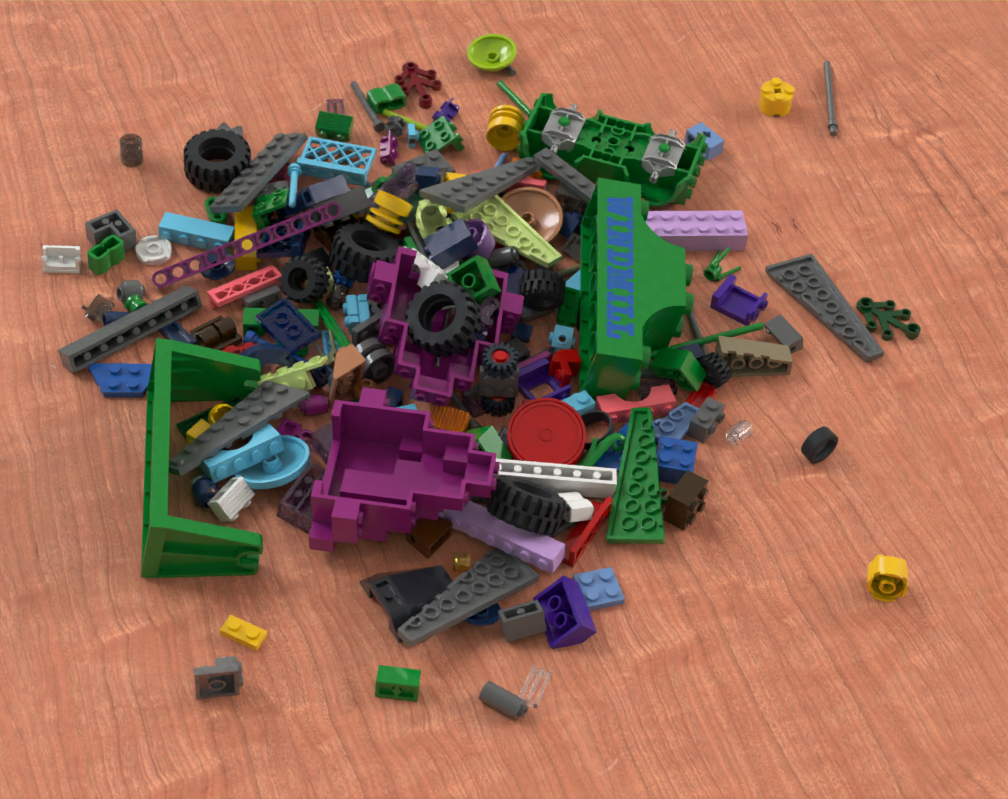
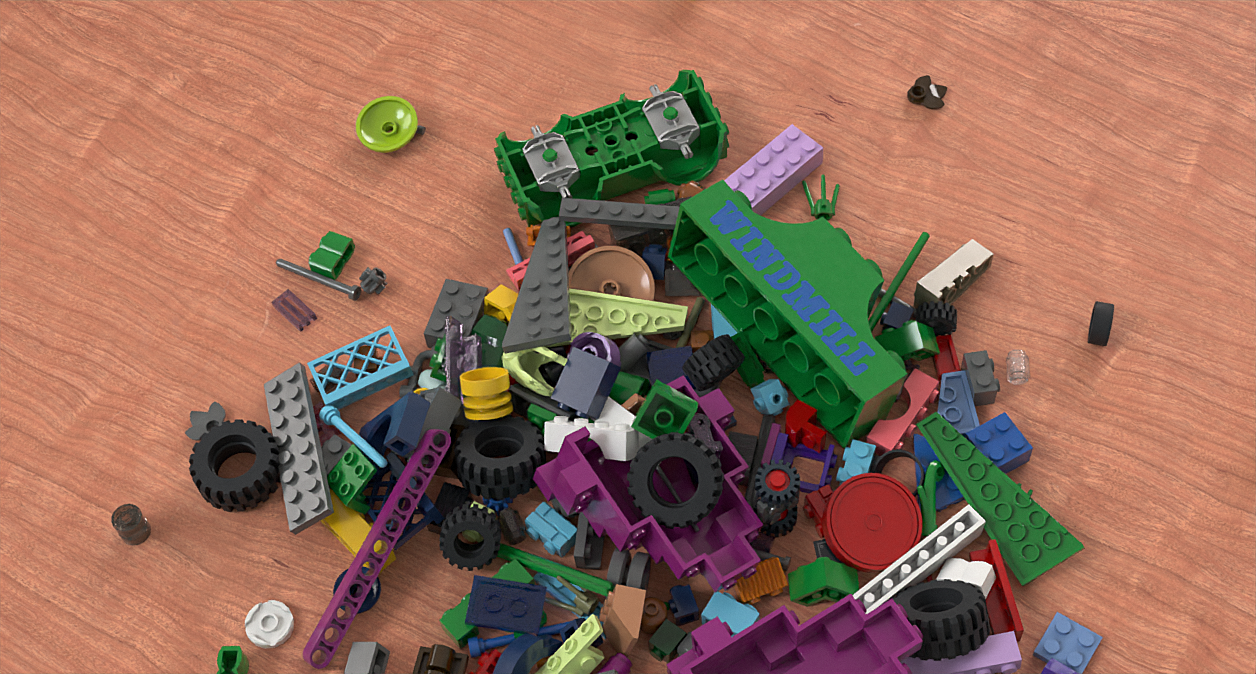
camera: 30 degrees left, 10 degrees up
(111, 224) = (205, 637): dark grey brick -> none
(195, 232) = (296, 568): medium azure brick -> none
(220, 218) = (283, 529): green plate -> none
(243, 286) = (409, 591): coral fence -> none
(262, 298) = (438, 591): dark grey hinge -> none
(334, 126) = (313, 328): green brick -> none
(388, 148) = (386, 306): magenta hinge -> none
(412, 70) = (343, 212): dark red plant -> none
(412, 135) = (399, 278): medium azure plate -> none
(419, 126) = (393, 261): lime bar -> none
(428, 176) = (482, 320): dark blue brick -> none
(439, 135) = (427, 260): green bracket -> none
(447, 109) = (405, 222): dark purple hinge -> none
(504, 127) = (486, 201): yellow wheel -> none
(513, 97) = (459, 159): green bar -> none
(686, 500) = (1055, 482): dark brown brick -> none
(715, 142) = (668, 67): medium blue brick -> none
(737, 302) = (877, 225): dark purple panel -> none
(784, 333) = (950, 226): dark grey hinge -> none
(815, 290) = (928, 159): dark grey wing -> none
(858, 257) = (926, 93): none -> dark brown plate
(868, 307) = (1011, 139): dark green plant -> none

